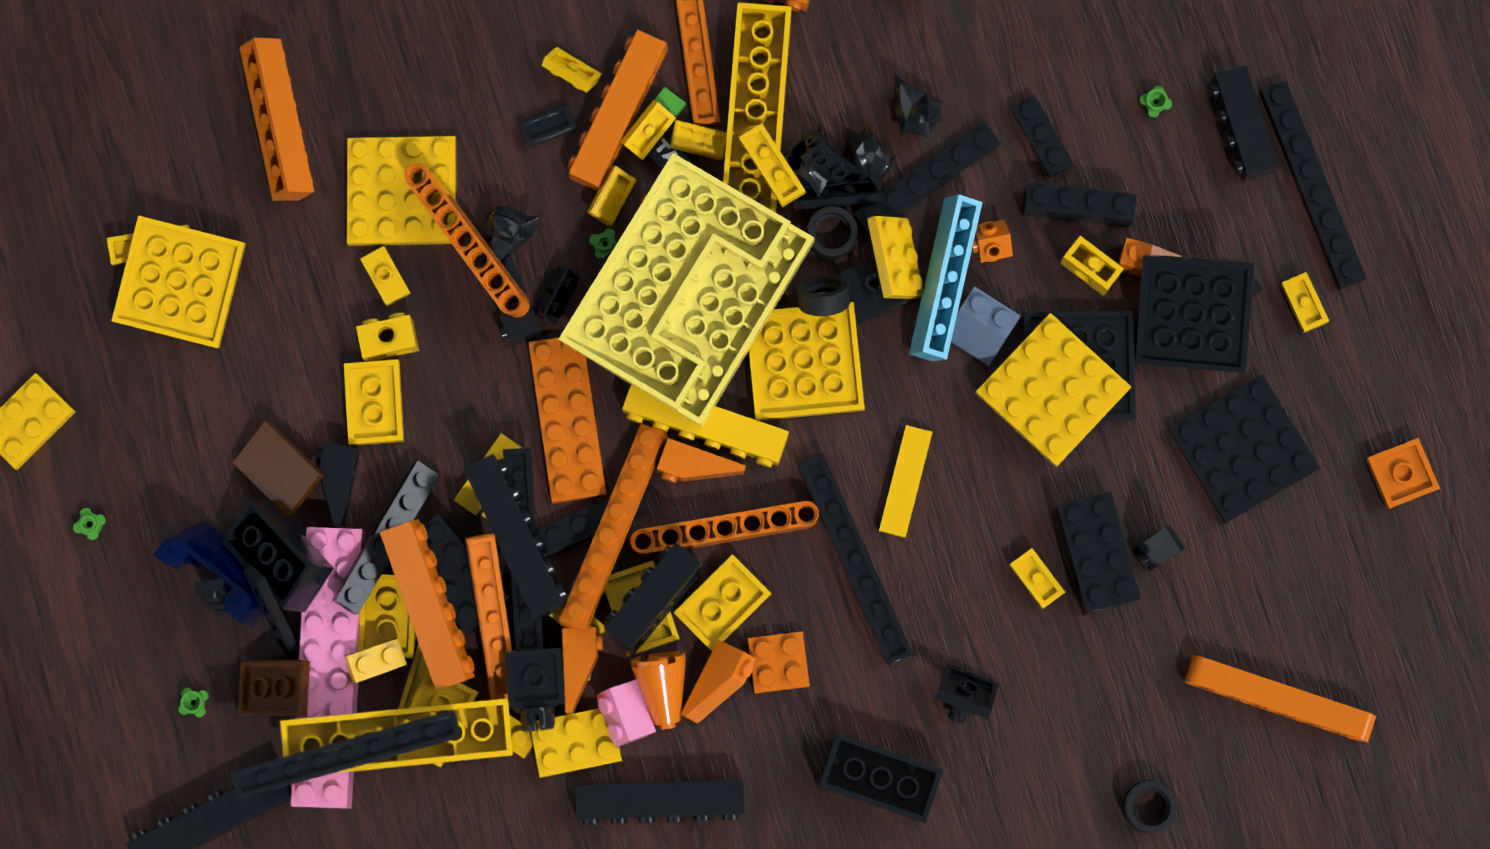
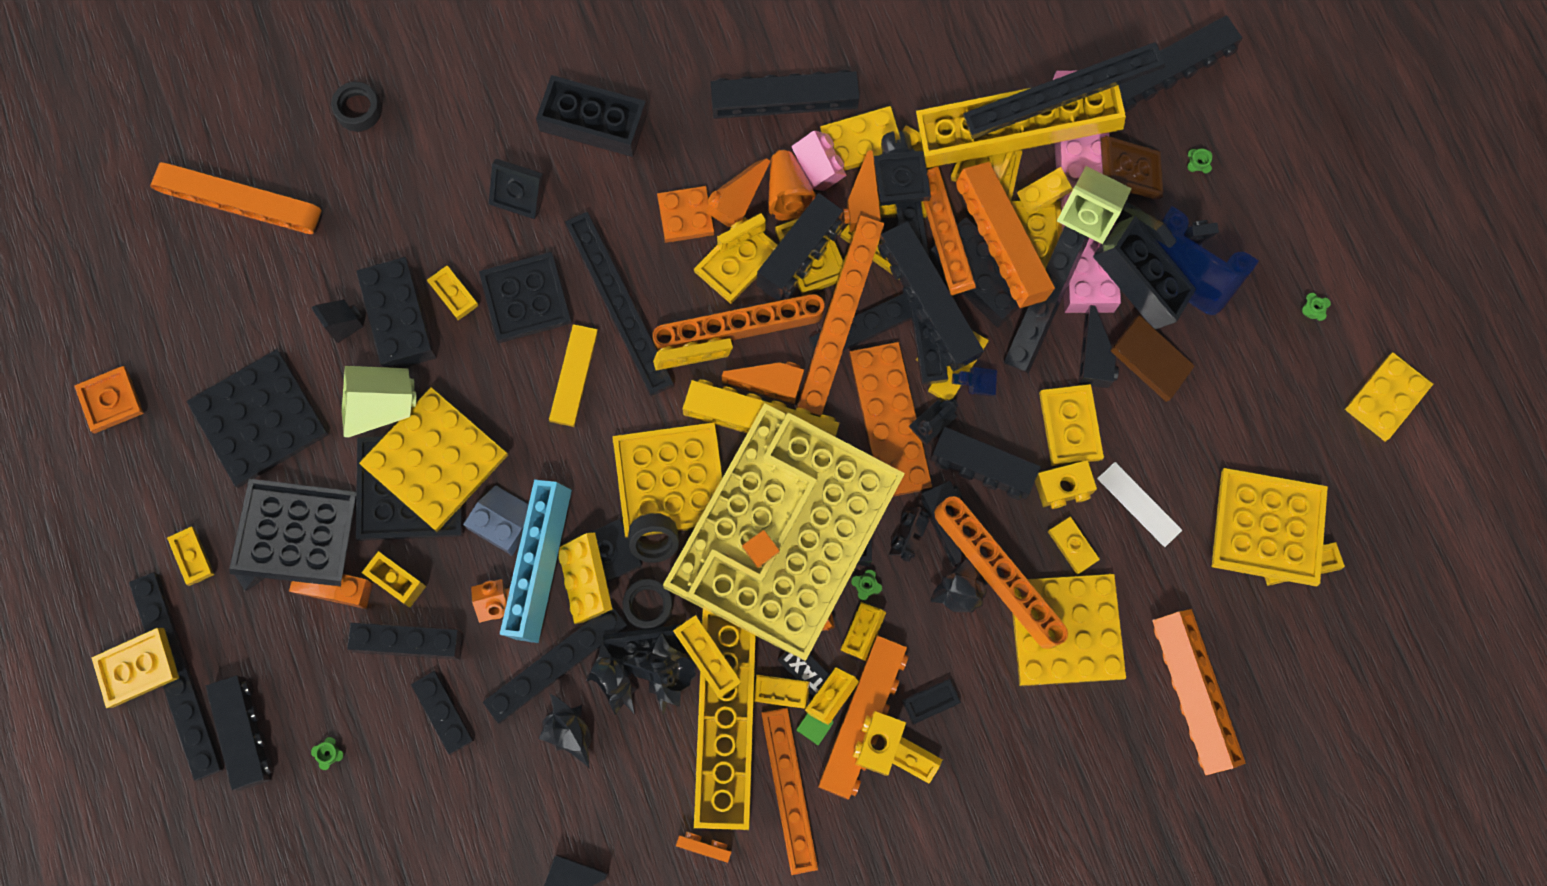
camera: 170 degrees right, 5 degrees down
(310, 318) = (1139, 504): none -> white sticker
(323, 628) = (1094, 204): none -> yellowish green slope
(467, 452) = (980, 381): none -> clear blue plate
(471, 363) = (985, 464): none -> black brick
(520, 412) = (934, 419): none -> black hinge
(604, 61) = (891, 731): none -> yellow brick
(712, 263) = (760, 549): none -> orange tile
(717, 627) = (741, 232): none -> yellow plate
(776, 494) = (692, 353): none -> yellow plate
(957, 570) = (525, 297): none -> black plate
(1115, 454) = (375, 397): none -> yellowish green slope
(1351, 188) = (135, 667): none -> yellow plate

